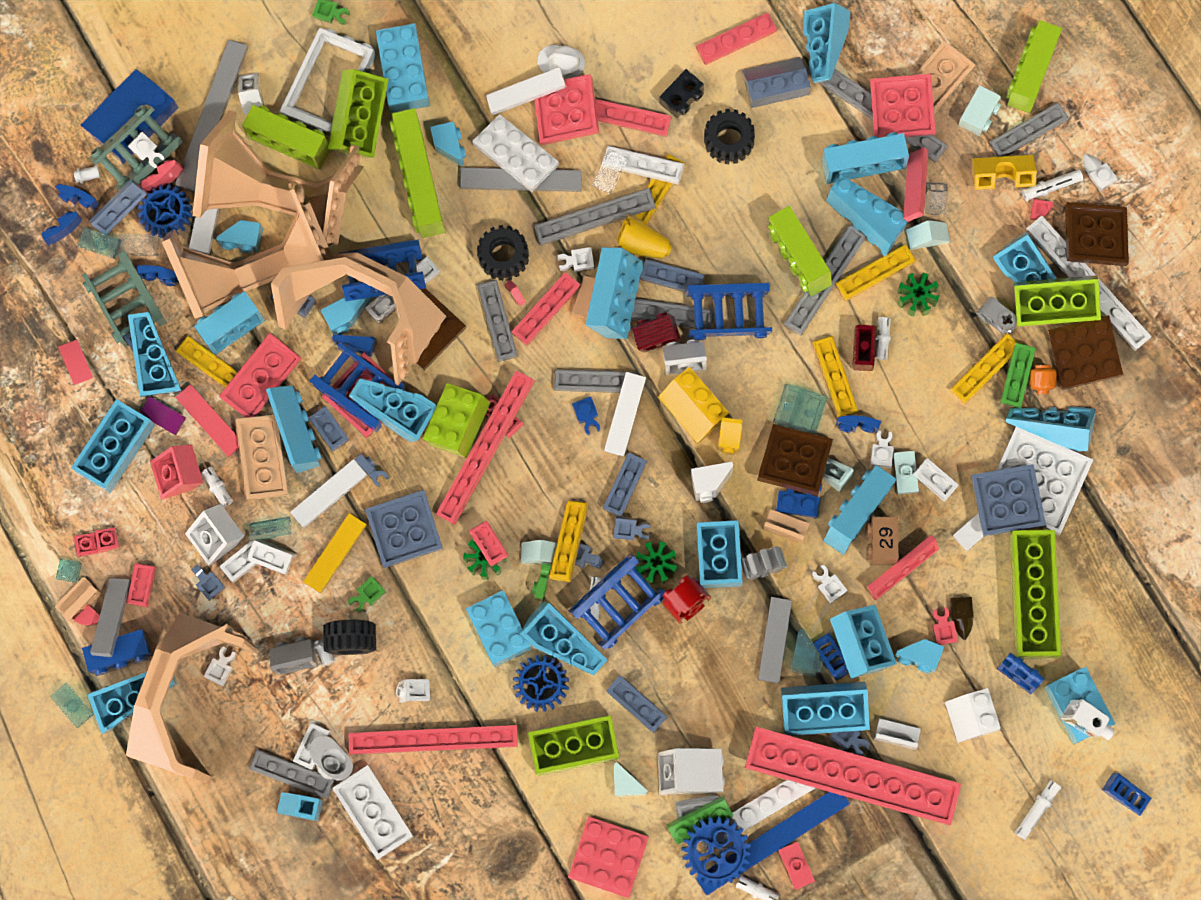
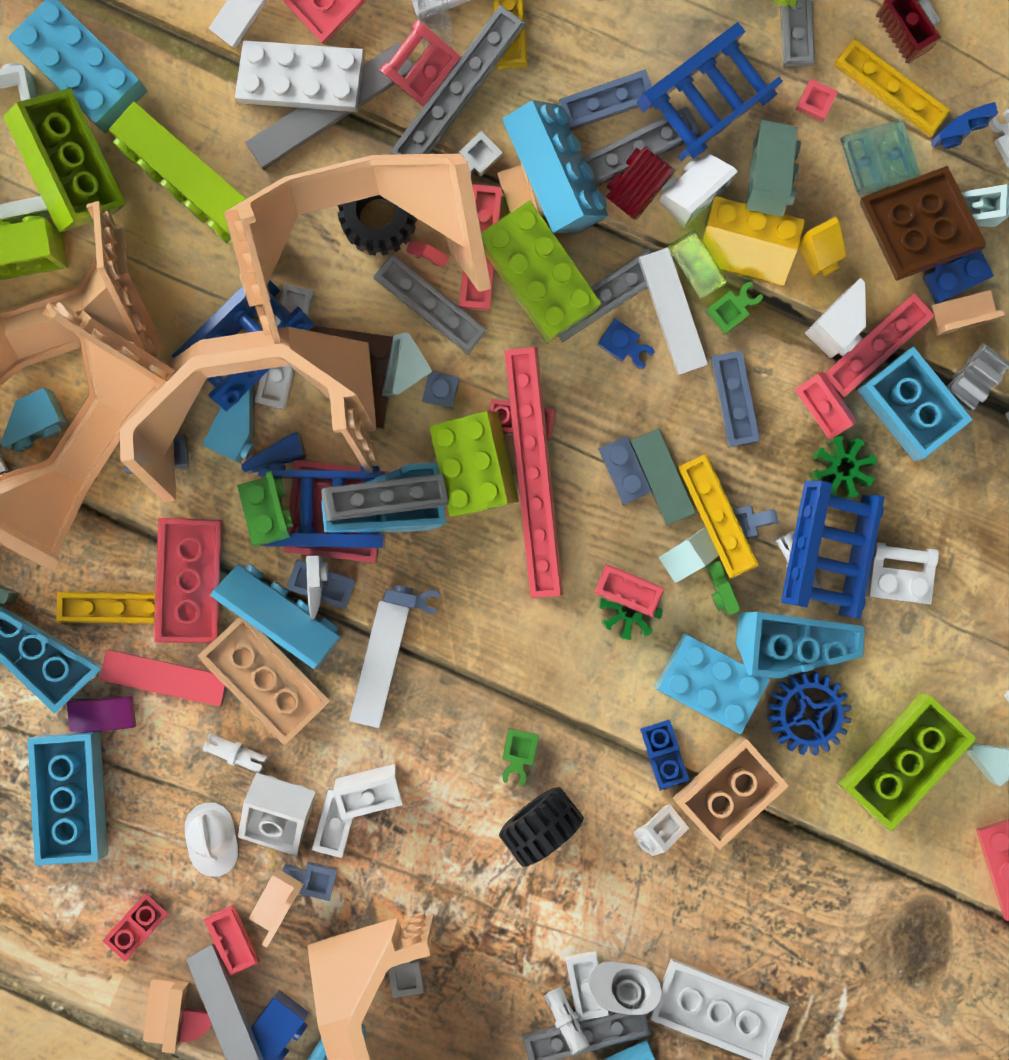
camera: 45 degrees left, 10 degrees up
(68, 571) = (127, 985): clear light blue plate -> none
(170, 525) = (211, 839): none -> white piece
(176, 471) = (170, 770): coral slope -> none
(179, 580) = (275, 903): none -> light nougat panel
(229, 322) = (97, 541): medium azure brick -> none
(270, 528) = (340, 759): clear light blue plate -> none
(287, 755) = (566, 1020): none -> white pin
(292, 657) = (485, 897): light grey slope -> none
(325, 657) = (507, 859): white pin -> none
(326, 365) = (264, 510): none -> bright green bracket
(329, 420) = (316, 573): none -> white plate
(335, 553) = (441, 731): yellow tile -> none
(394, 401) = (384, 497): none -> light grey tile
(404, 529) = (504, 642): sand blue plate -> none
(432, 214) = (425, 185): none -> light nougat panel
(433, 740) = (727, 873): coral plate -> none
(446, 142) = (205, 123): medium azure slope -> none
(446, 651) = (664, 755): none -> blue slope
(458, 343) = (404, 366): none -> light aqua slope
(465, 693) = (730, 792): none -> light nougat brick
(469, 370) = (440, 389): none -> sand blue plate
(537, 482) = (624, 470): none -> sand blue plate
(555, 500) = (662, 477): none -> sand green tile
(564, 342) = (538, 272): none -> lime brick
(585, 196) = (429, 68): none -> coral plate
(627, 528) = (777, 448): sand blue plate -> none
(636, 704) = (940, 656): sand blue plate -> none
(642, 239) = (536, 76): yellow cone -> none
(643, 650) = (902, 584): none -> white plate
(656, 397) = (697, 263): none -> clear neon green plate
(656, 435) = (731, 310): none -> bright green plate
(672, 522) = (826, 405): none -> coral plate
(685, 599) = (915, 488): red brick -> none
(725, 510) = (879, 345): none -> coral plate
(732, 373) = (773, 168): none -> sand green brick
(786, 355) = (816, 100): none -> coral plate

